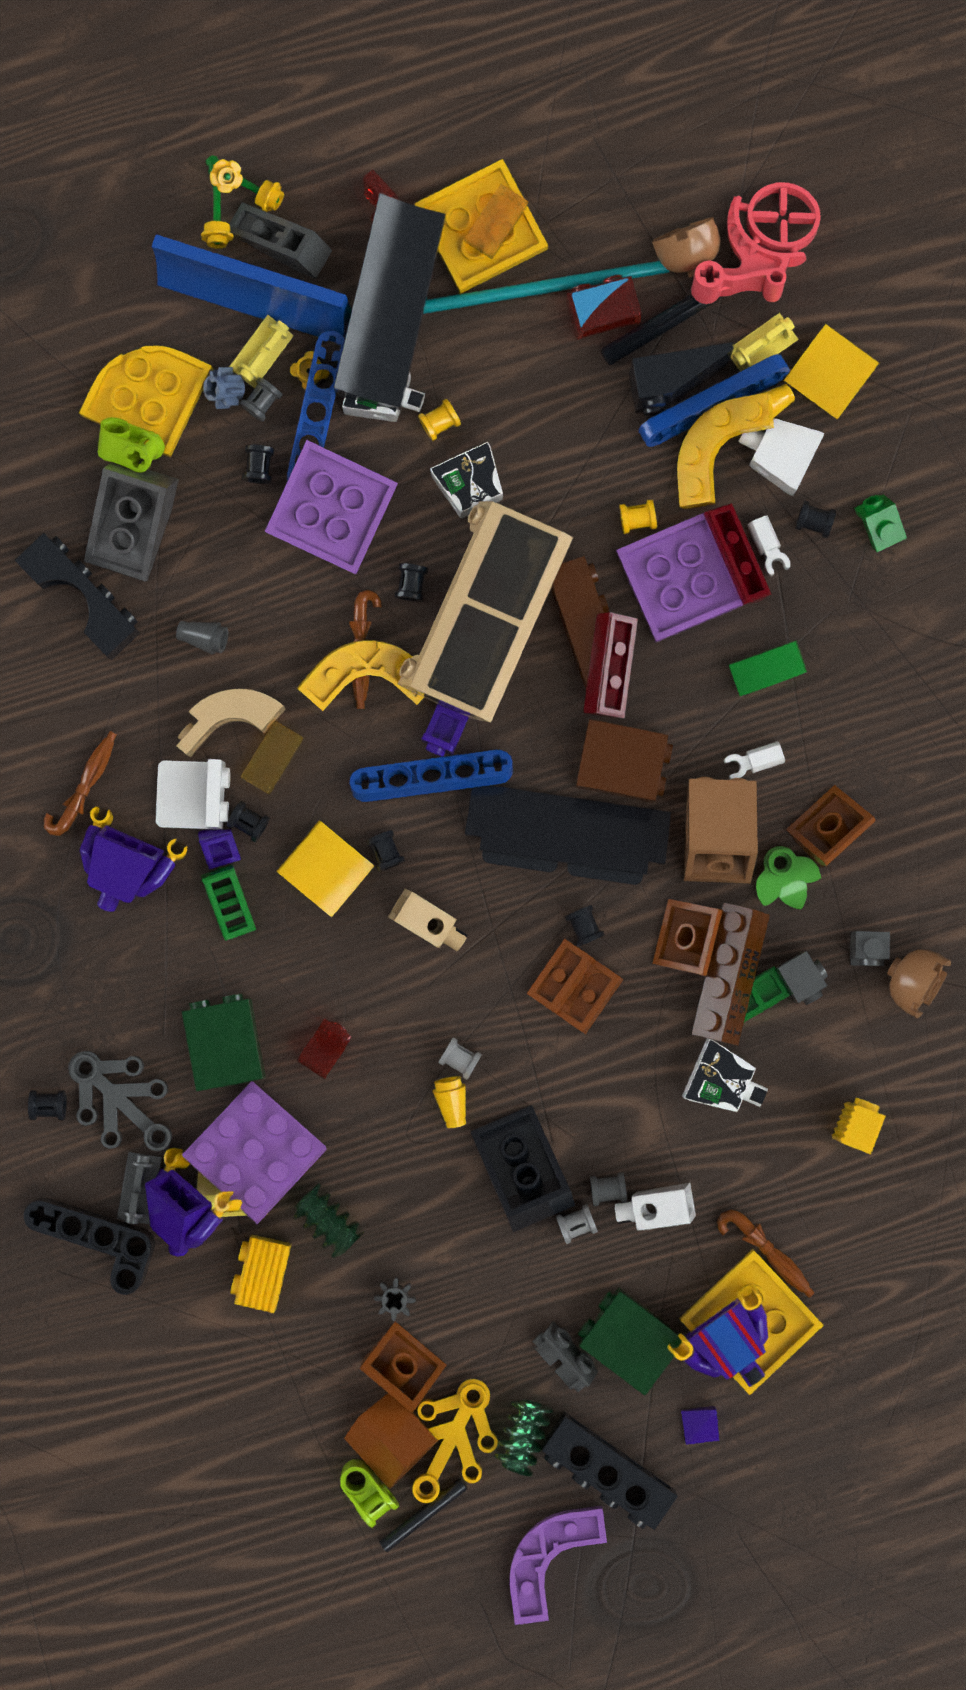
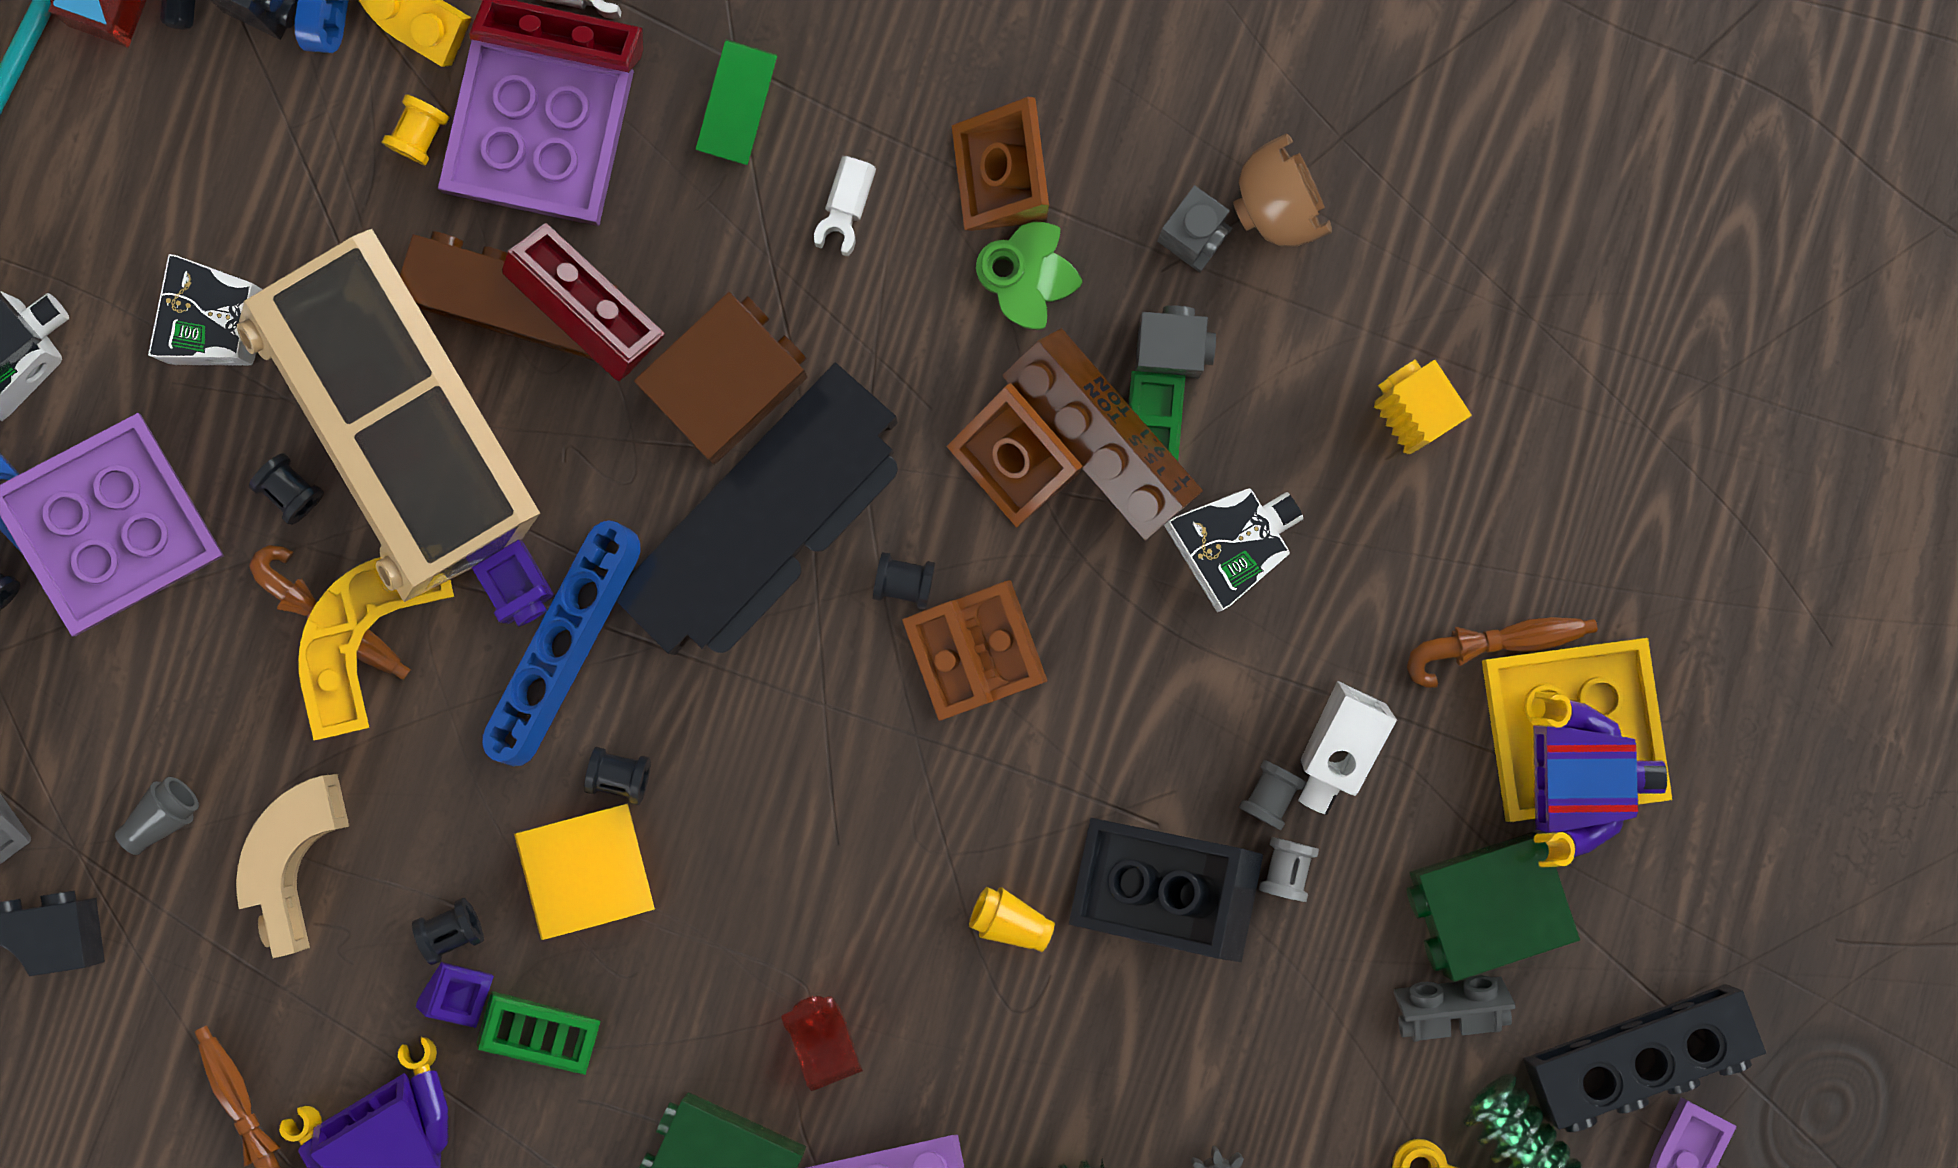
camera: 60 degrees left, 0 degrees up
(192, 794) = (358, 980): white bracket -> none
(272, 757) = (387, 838): clear yellow tile -> none
(415, 913) = (726, 797): tan torso -> none
(439, 419) = (98, 299): yellow bush -> none
(460, 1058) = (962, 870): light grey bush -> none
(700, 1425) = (1664, 891): dark purple slope -> none
(720, 830) = (905, 313): medium nougat slope -> none

